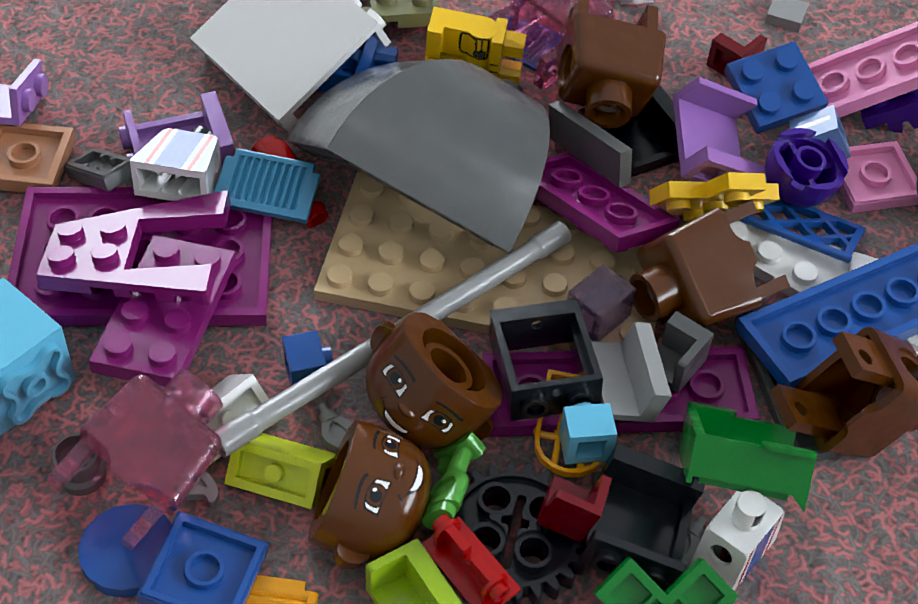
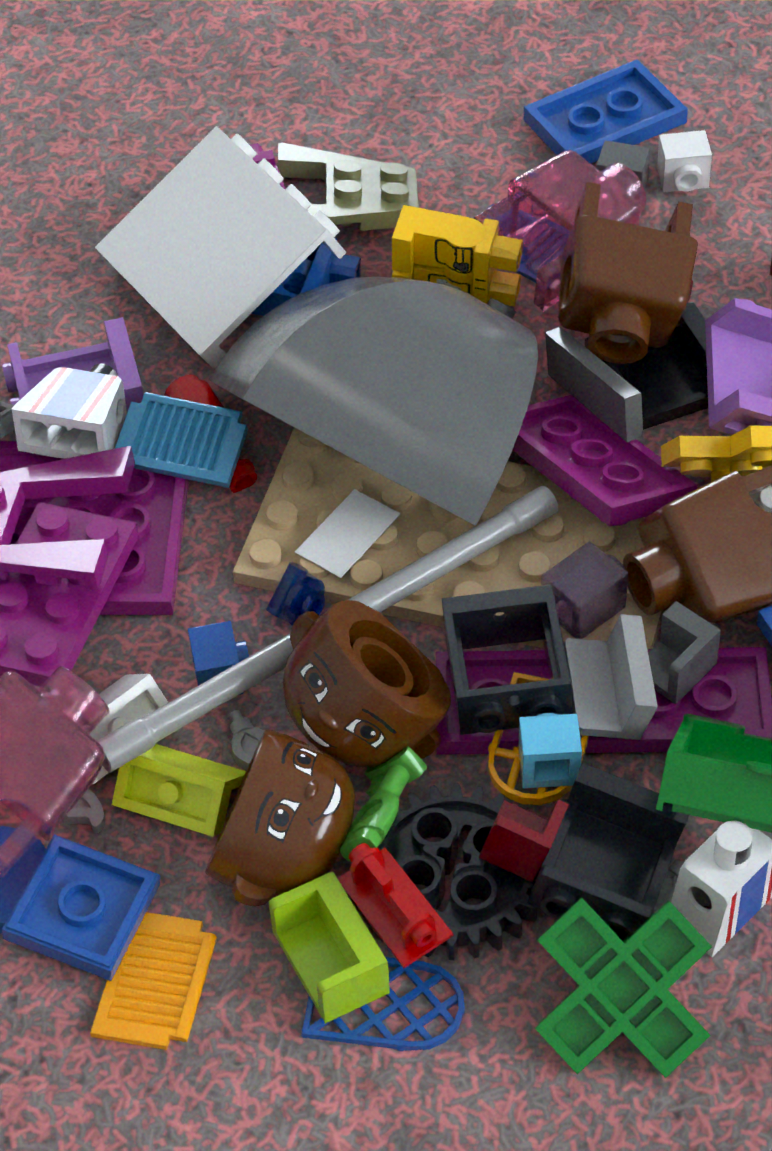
camera: 10 degrees right, 0 degrees up
(367, 309) = (297, 594): none -> clear blue plate
(404, 259) = (347, 533): none -> white sticker

